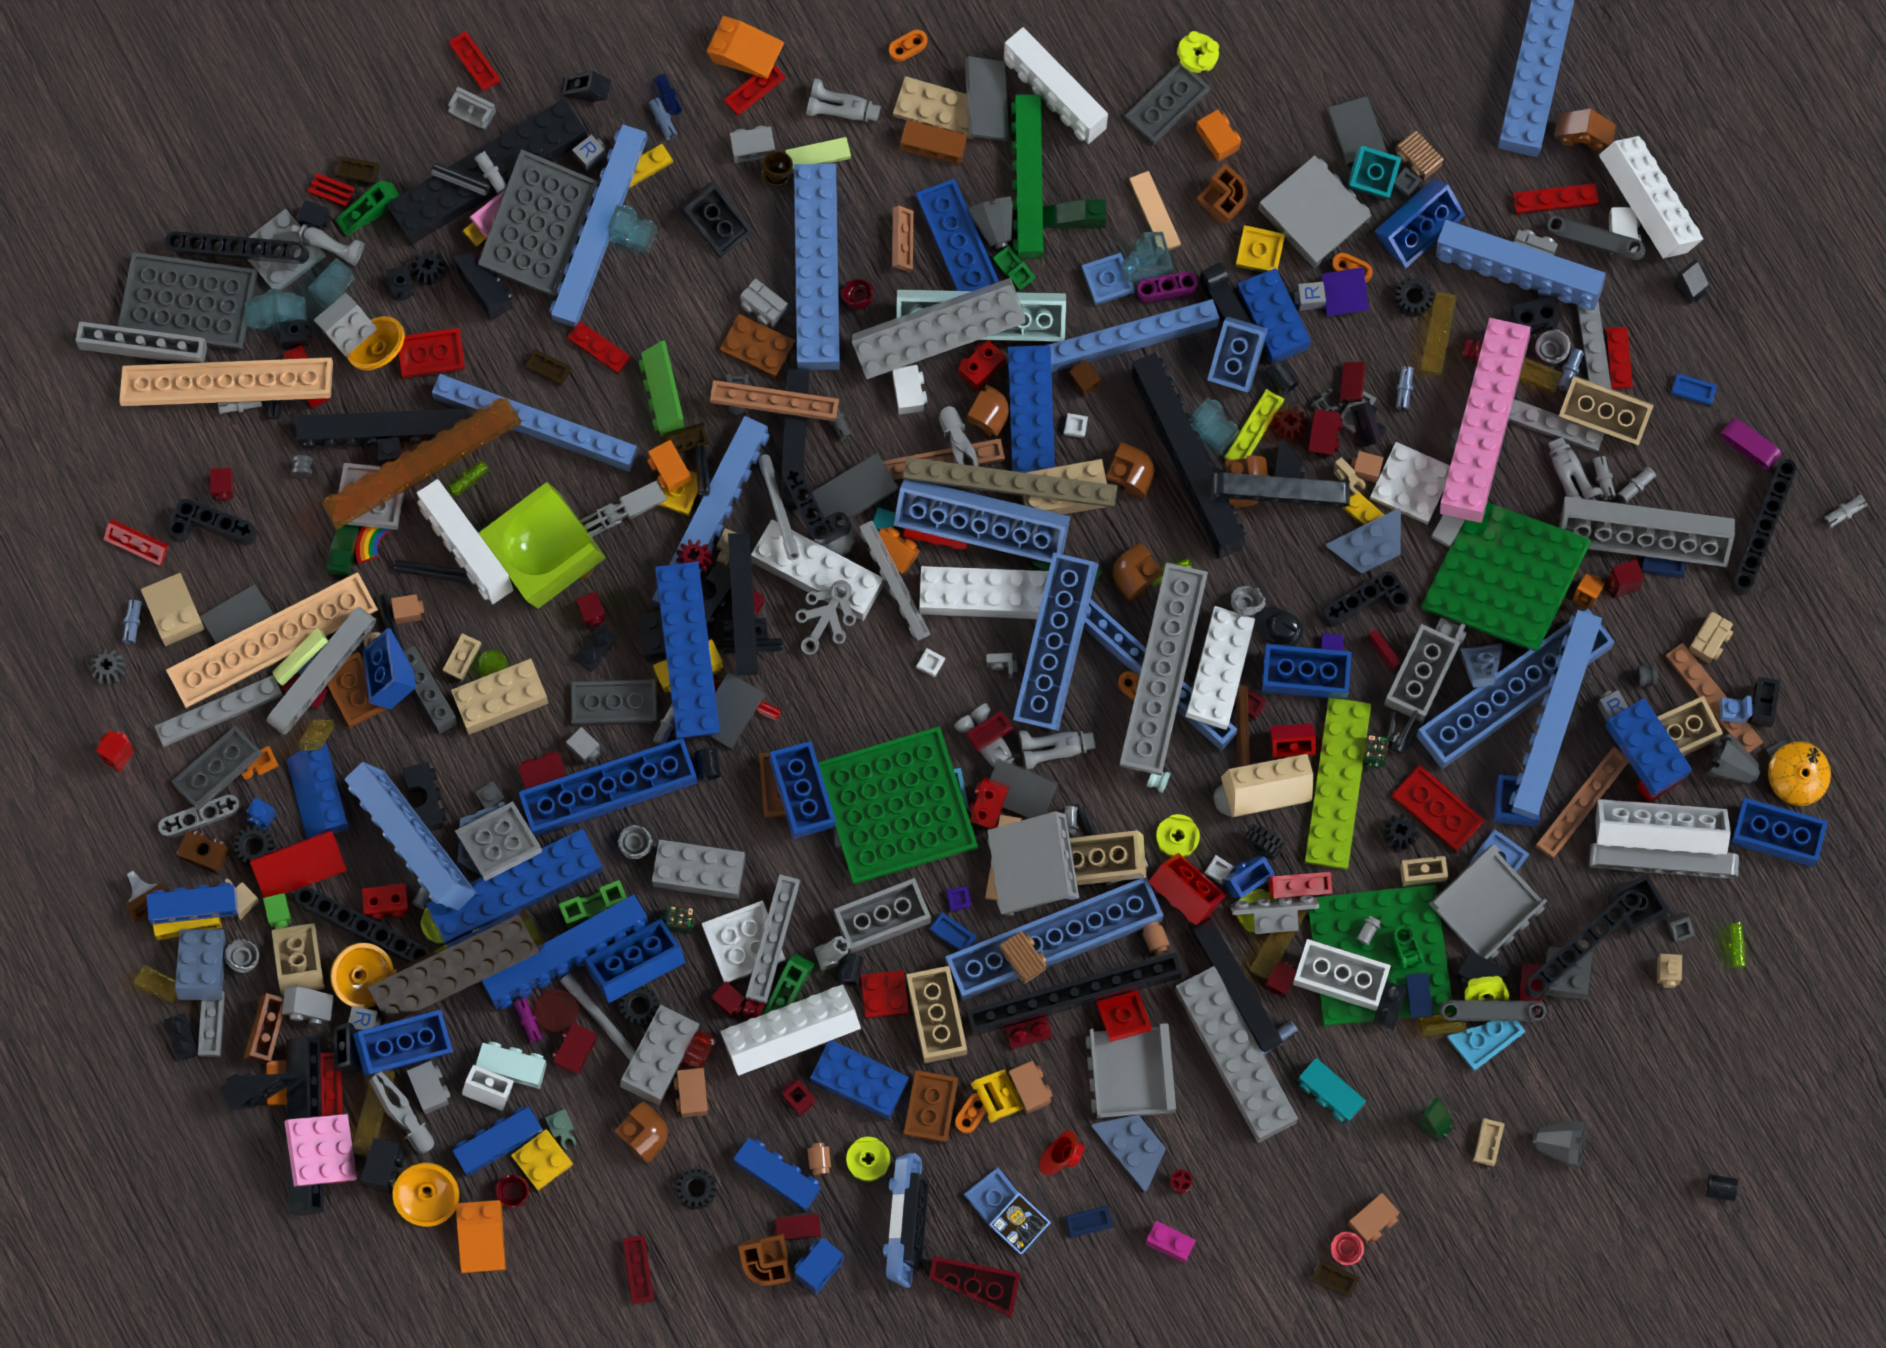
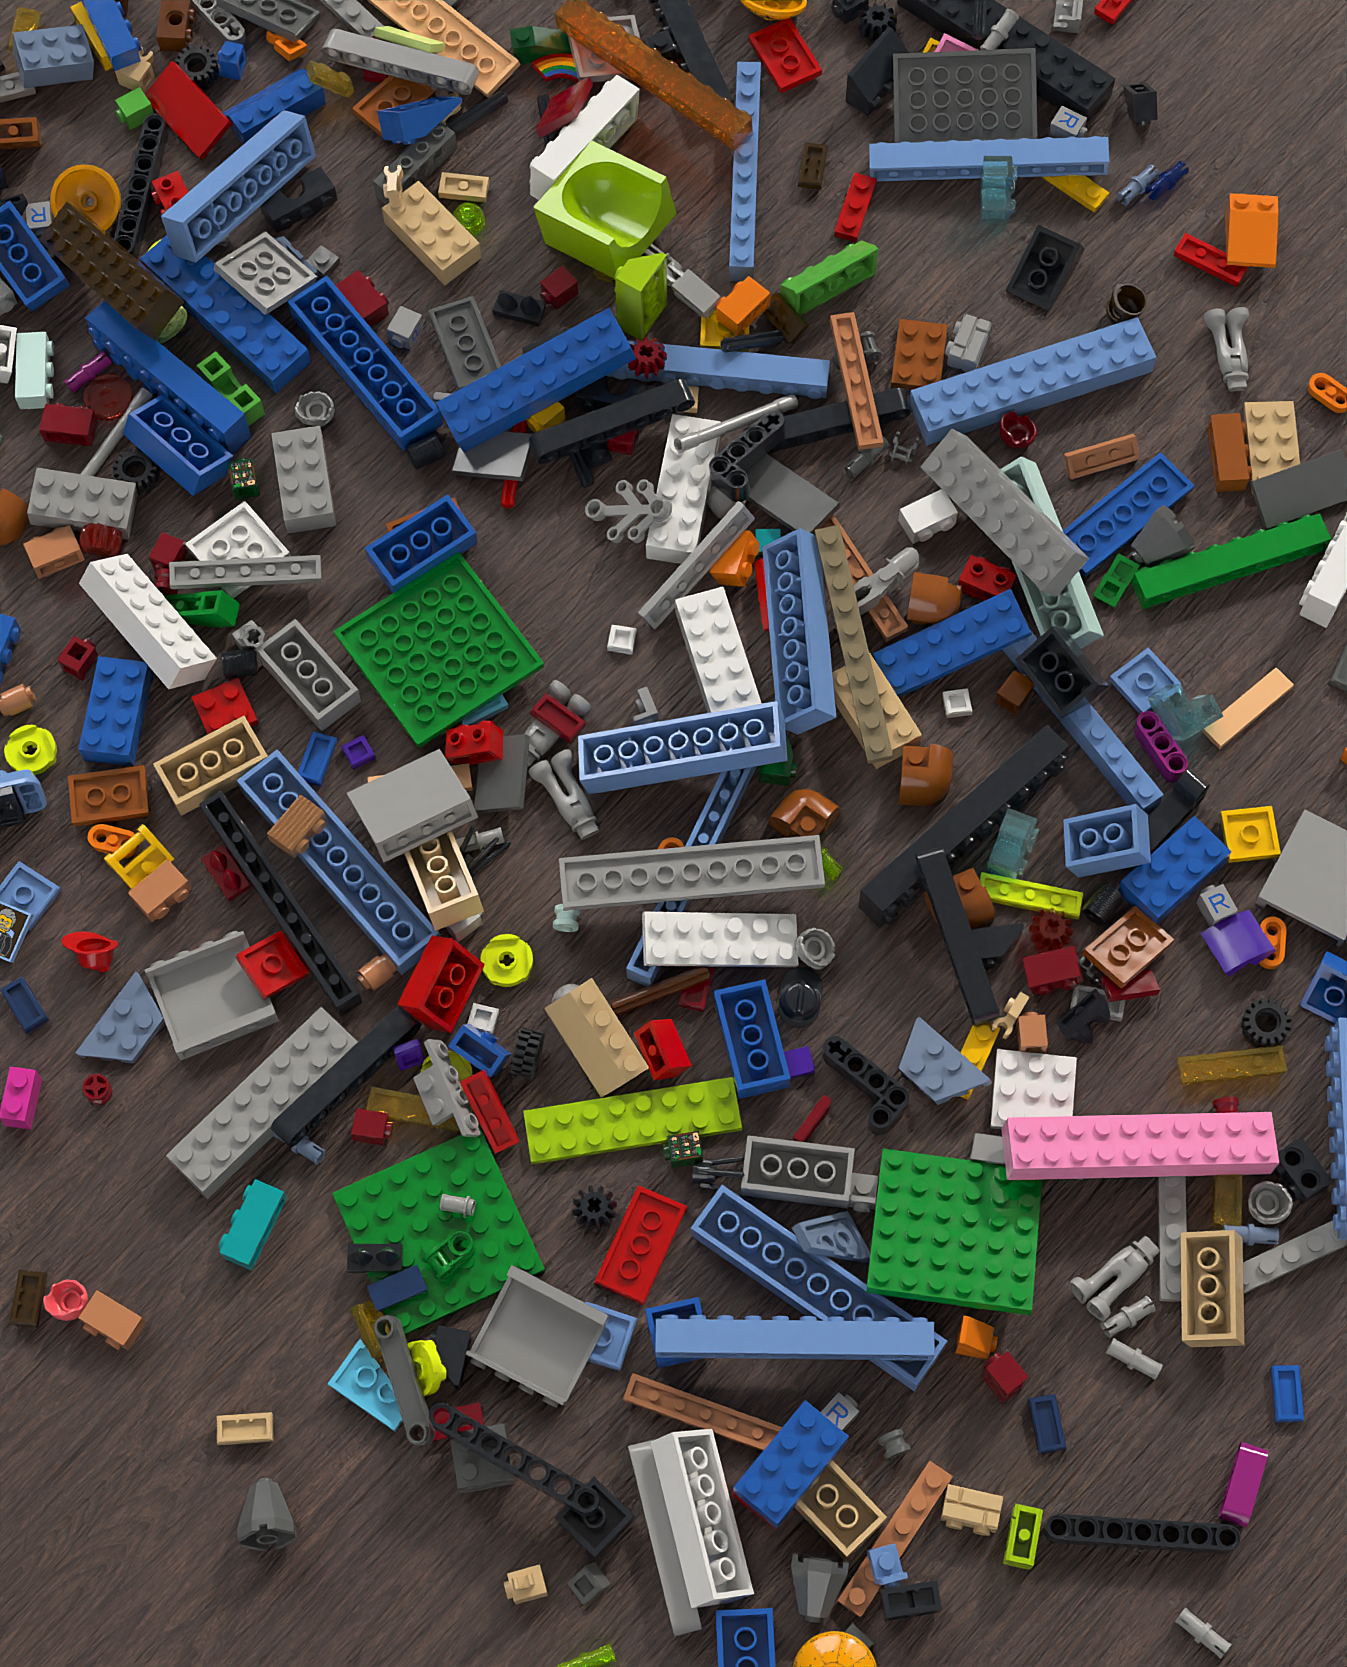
camera: 75 degrees right, 5 degrees down
(241, 955) = (75, 90): light grey hair -> none
(297, 957) = (88, 140): tan slope -> none
(307, 1005) = (37, 161): light grey brick -> none
(407, 609) = (497, 120): nougat brick -> none
(425, 547) = (564, 107): none -> dark red tile
(459, 711) = (393, 187): none -> tan plate
(469, 478) = (661, 132): clear neon green pin -> none
(640, 543) = (641, 293): none -> lime slope
(751, 144) = (1144, 271): light grey brick -> none
(821, 153) = (1166, 346): yellowish green tile -> none
(835, 392) = (912, 450): none -> dark grey piece
(1076, 214) = (1208, 625): dark green slope -> none
(1091, 334) = (1062, 671): none -> black slope
(1224, 195) = (1296, 771): dark orange brick -> none
(1232, 933) = (409, 1054): none -> dark purple tile
(1323, 371) = (1128, 947): none -> plate
(1341, 975) = (389, 1187): white brick -> none
(1404, 388) = (1147, 1047): sand blue pin -> none
(1423, 871) = (553, 1248): tan brick -> none
(1436, 1121) = (246, 1352): dark green slope -> none
(1619, 358) = (1289, 1289): red plate -> none
(1650, 531) = (1075, 1386): light grey brick -> none
(1743, 608) = (1023, 1536): none -> lime brick

